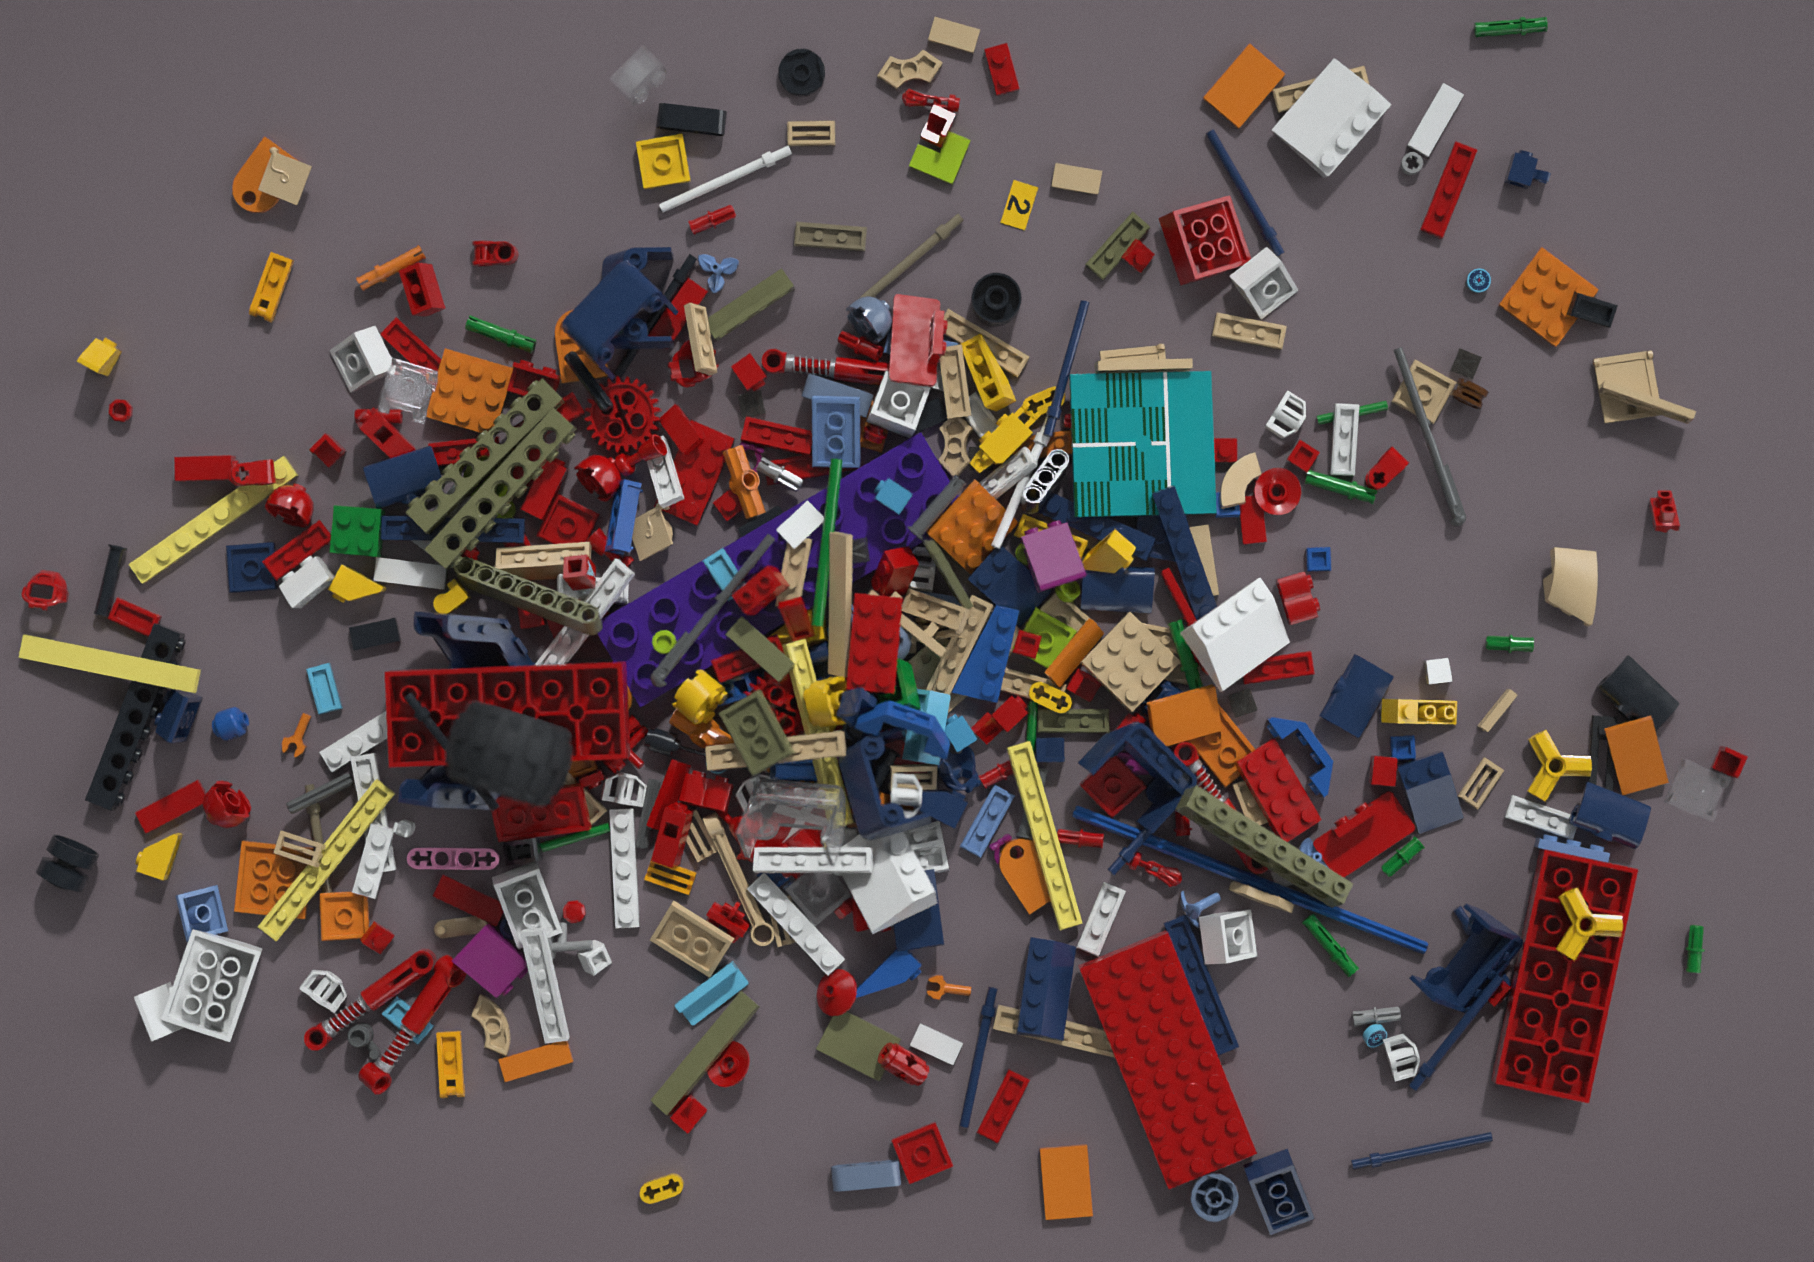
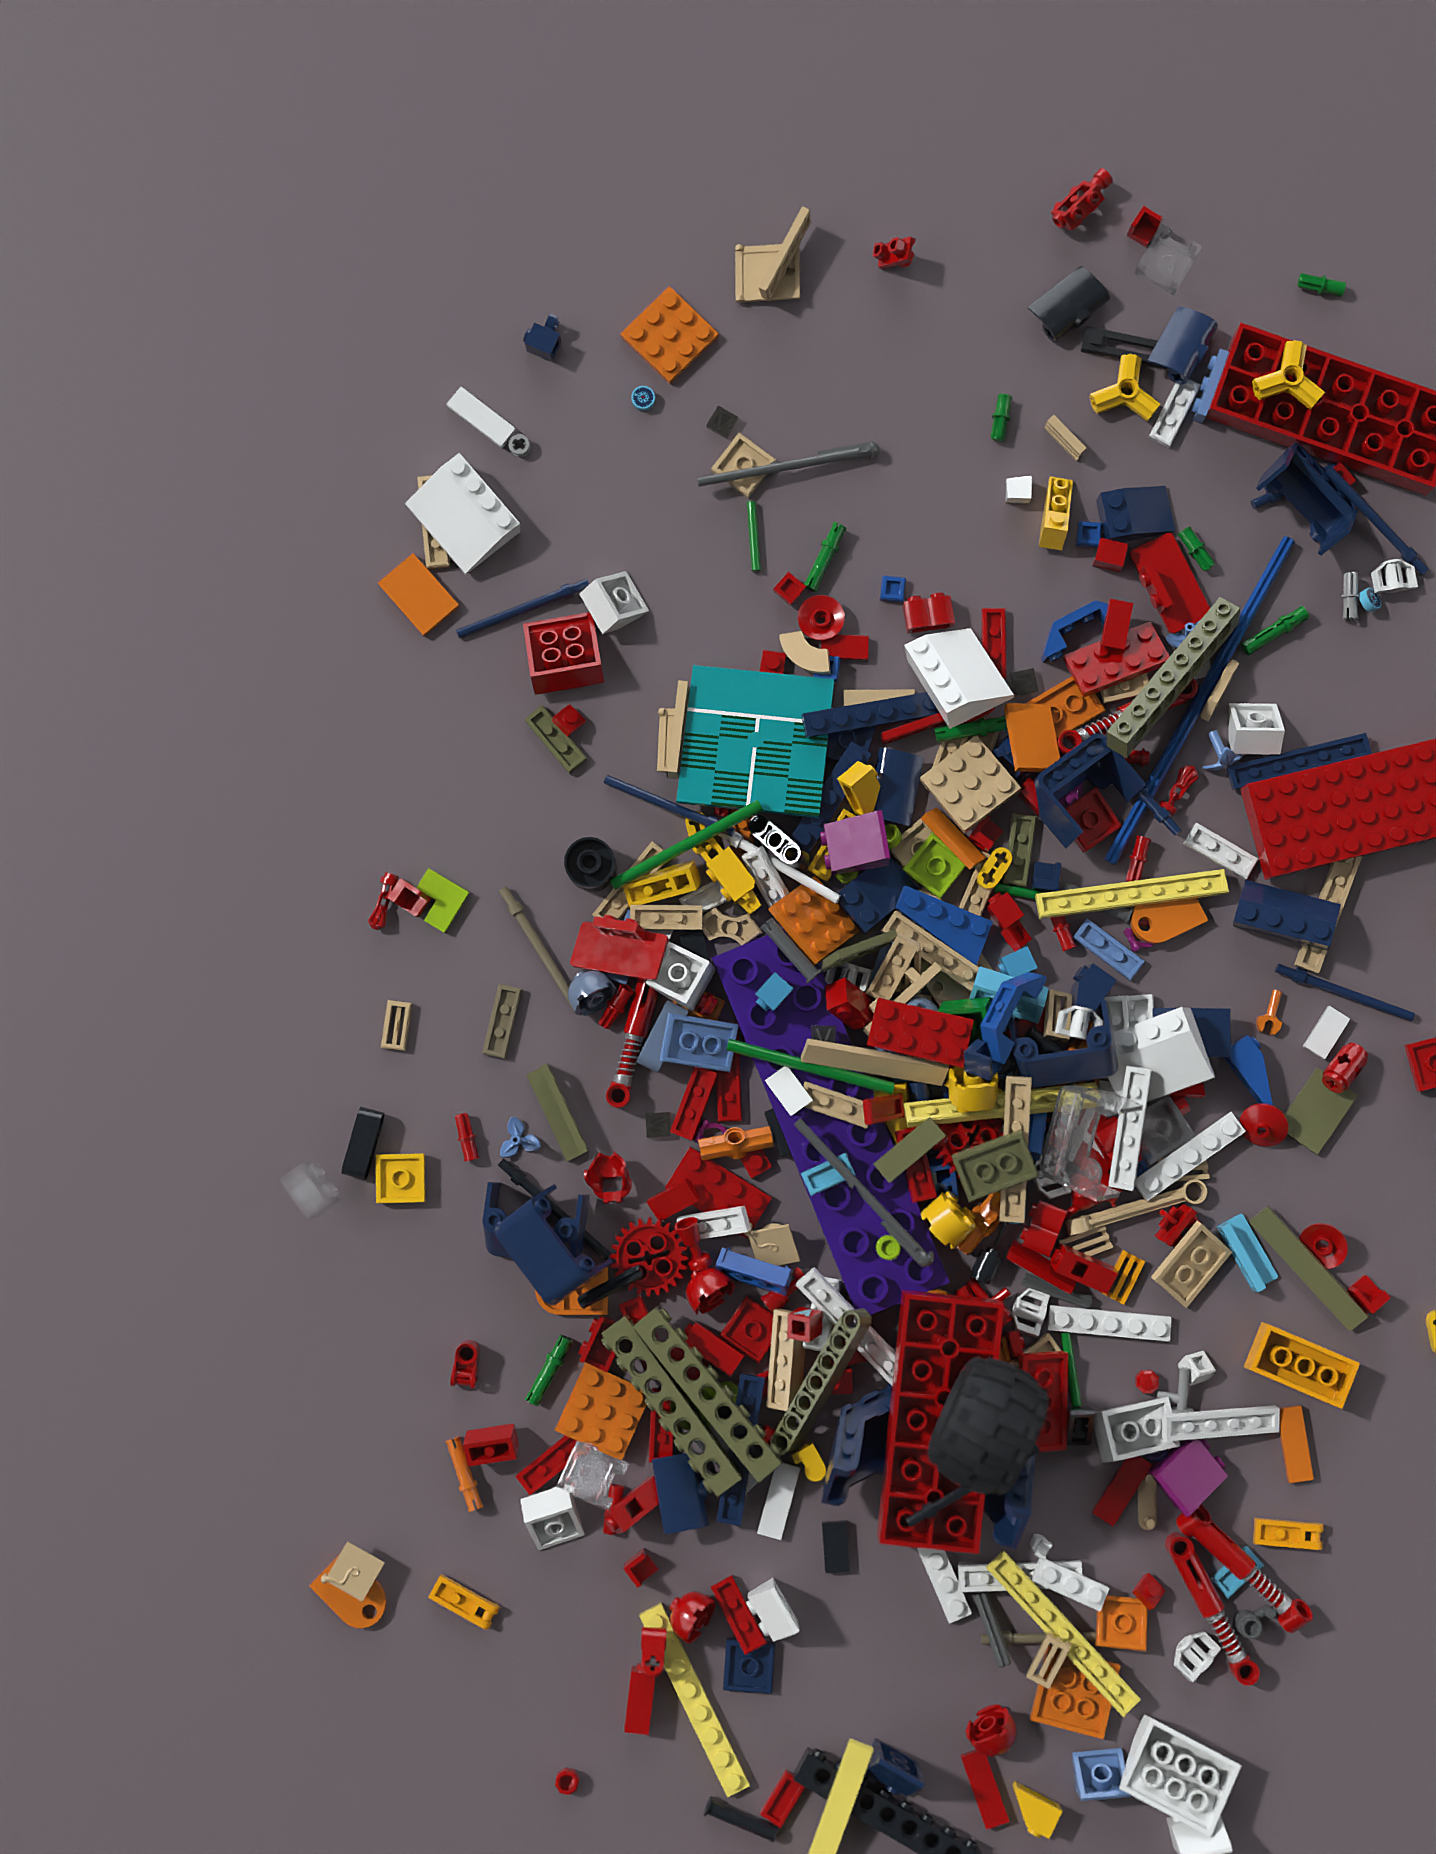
camera: 75 degrees left, 5 degrees down
(100, 356) = (508, 1795): yellow slope -> none
(230, 723) = (908, 1713): blue head -> none
(297, 737) = (929, 1643): orange bar -> none
(324, 688) = (884, 1608): medium azure tile -> none
(353, 585) = (782, 1562): yellow slope -> none
(356, 531) = (728, 1550): green brick -> none
(453, 858) = (1080, 1499): bright pink beam -> none
(494, 1024) = (1252, 1481): tan tile -> none
(611, 1056) = (1301, 1365): none -> light orange brick
(672, 324) = (546, 1175): red tile -> none
(700, 339) = (585, 1165): tan tile -> none
(749, 373) = (626, 1121): red brick -> none
(760, 590) = (850, 1140): red brick -> none
(768, 159) = (415, 1072): white bar -> none
(779, 474) = (733, 1106): light grey axle -> none
(801, 72) = (334, 1026): black tile -> none
(921, 67) = (349, 929): tan tile -> none
(954, 35) = (322, 869): tan tile -> none
(959, 766) = (1050, 966): dark blue helmet -> none
(1001, 69) = (363, 827): red plate -> none
(1003, 1105) = (1396, 975): red tile -> none
(1019, 205) = (500, 830): yellow sticker -> none
(1027, 644) = (938, 883): red tile -> none
(1028, 391) = (686, 844): none -> green piece
(1076, 179) = (483, 769): tan tile -> none
(1249, 331) = (659, 624): tan tile -> none
(1287, 416) = (747, 598): white piece -> none
(1310, 785) = (1116, 624): none -> red tile
(1344, 439) = (779, 546): white tile -> none
(1356, 695) = (1032, 570): dark blue panel -> none
(1388, 466) = (812, 508): red piece -> none
(1448, 190) = (550, 414): red tile -> none
(1469, 393) = (752, 420): reddish brown wheel -> none
(1469, 799) = (1127, 471): tan tile -> none
(1505, 27) = (403, 325): green pin -> none
(1573, 583) = (951, 348): tan slope -> none
(1592, 309) = (688, 294): black tile -> none
(1636, 755) = (1127, 311): orange tile -> none
(1741, 693) = (1079, 206): none -> red brick

